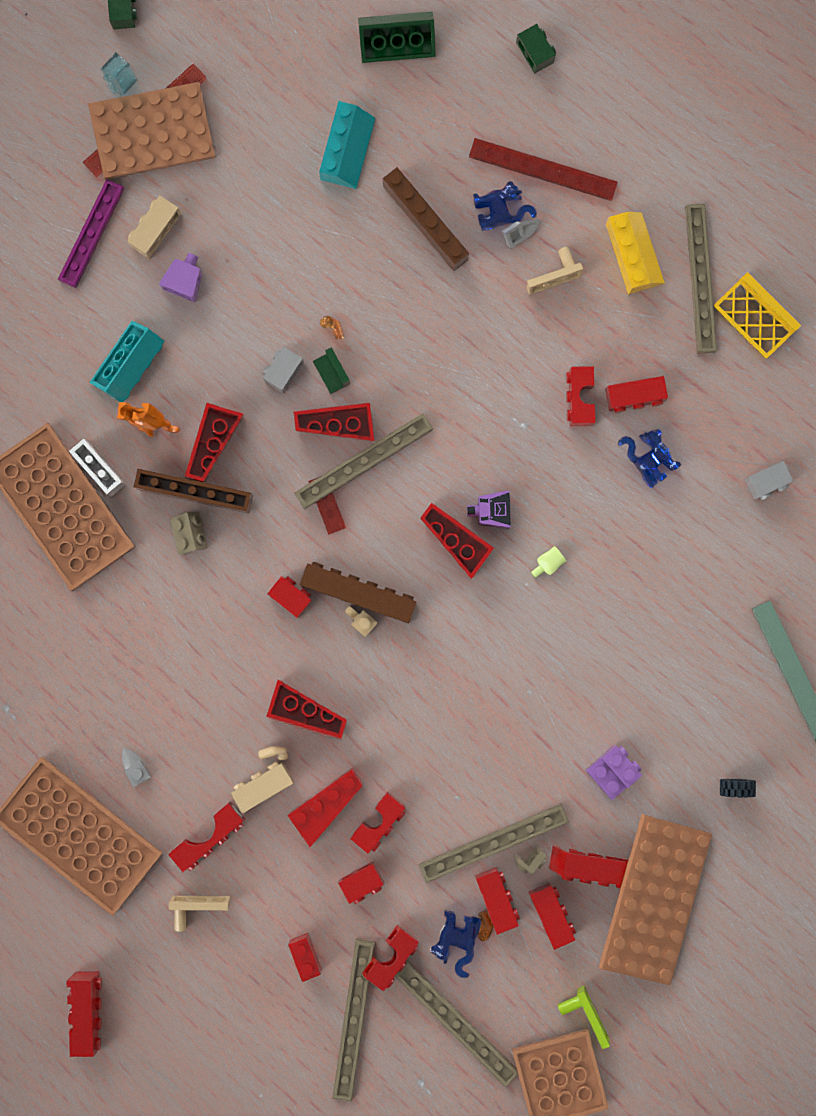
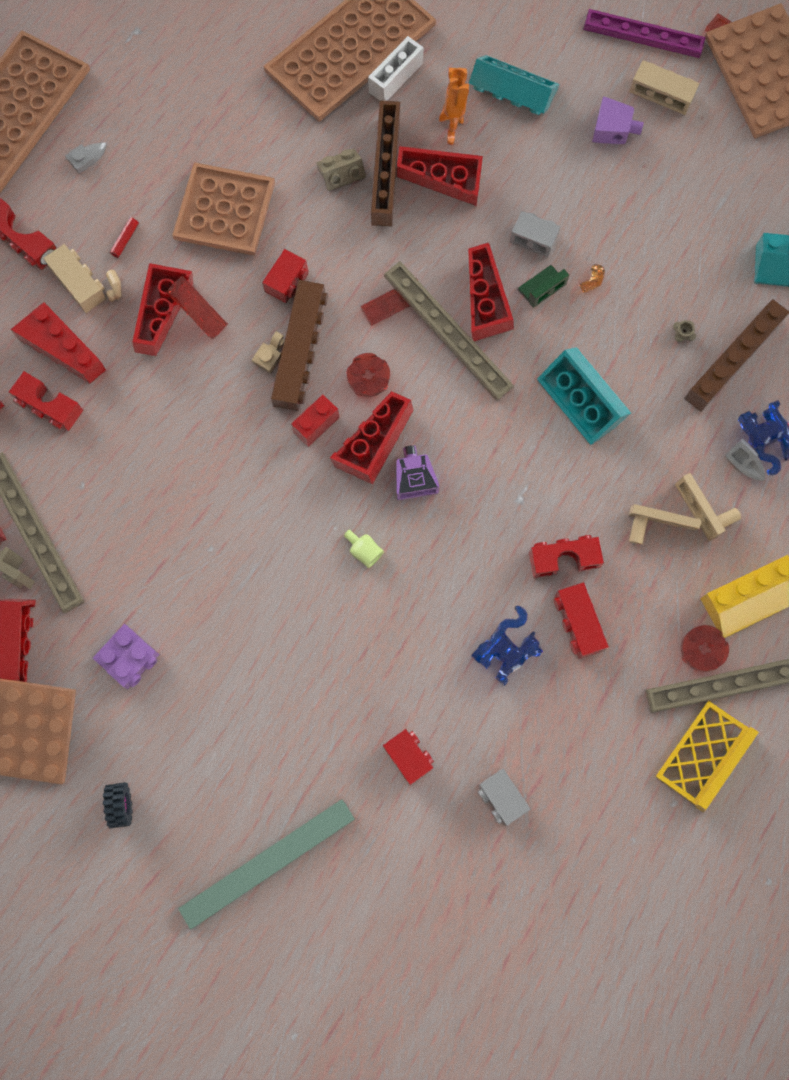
camera: 85 degrees right, 10 degrees down
(212, 644) = (224, 209): none -> nougat plate
(226, 739) = (124, 237): none -> red piece
(312, 678) = (196, 307): none -> clear red tile
(398, 254) = (685, 325): none -> dark tan plate
(403, 543) = (364, 386): none -> clear red plate
(431, 587) = (315, 420): none -> red brick
(442, 355) = (583, 395): none -> teal slope
(554, 326) = (643, 514): none -> tan piece
(662, 305) = (715, 642): none -> clear red plate
(728, 550) = (408, 756): none -> red brick

